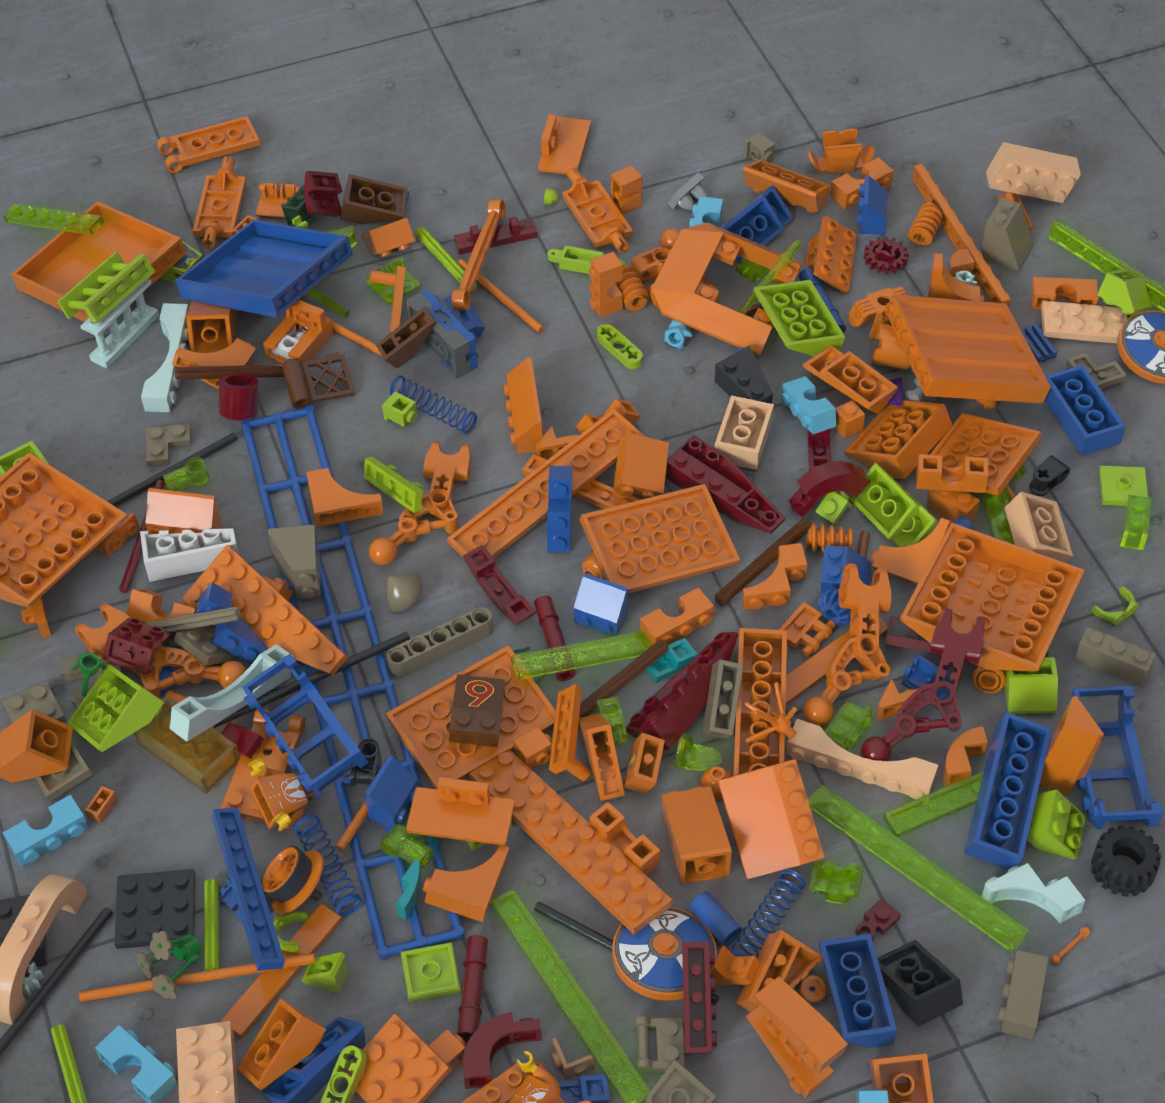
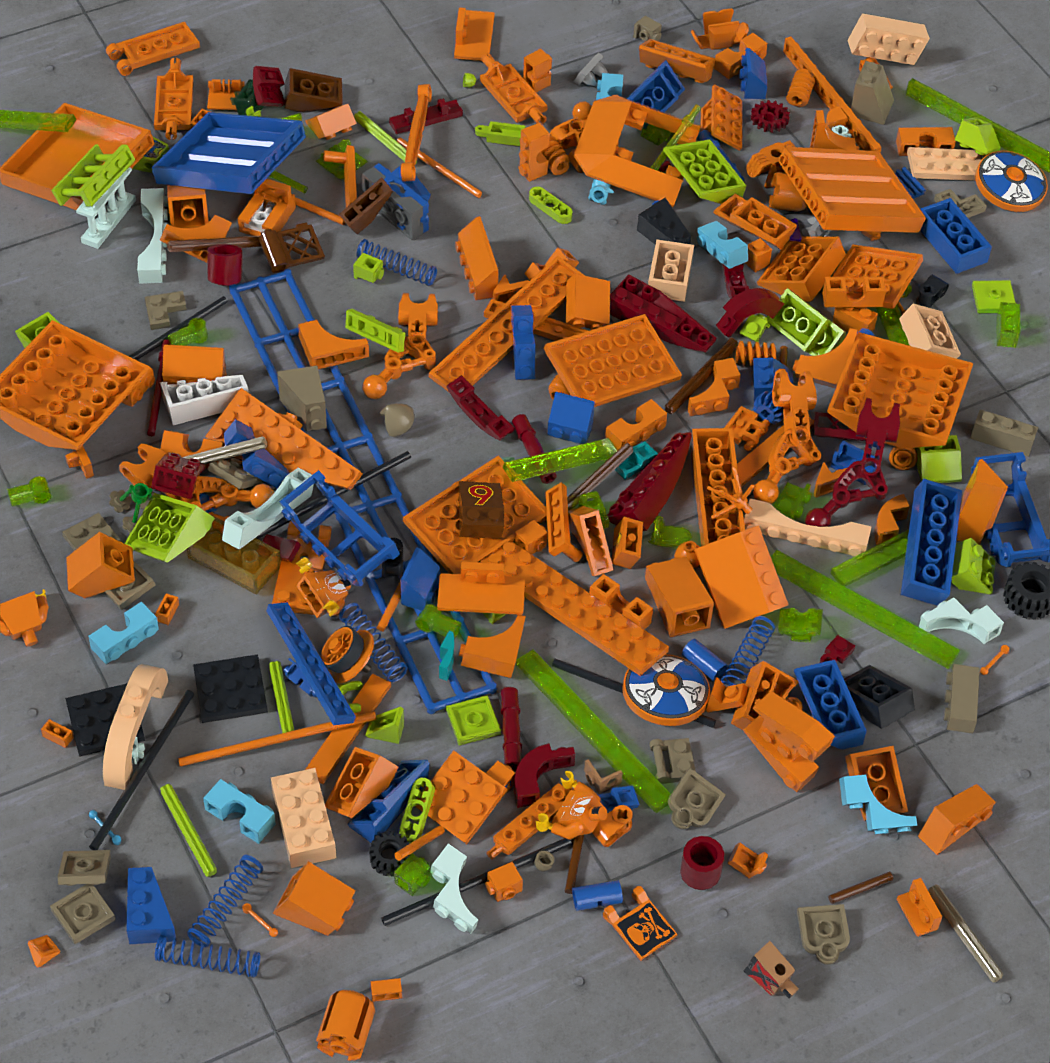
camera: 10 degrees left, 0 degrees up
(186, 949) = (261, 716): plant -> none
(440, 642) = (437, 458): dark tan beam -> none
(697, 997) = (701, 718): dark red brick -> none
(722, 699) = (686, 487): dark tan brick -> none
(1118, 617) = (1002, 401): lime cap -> none

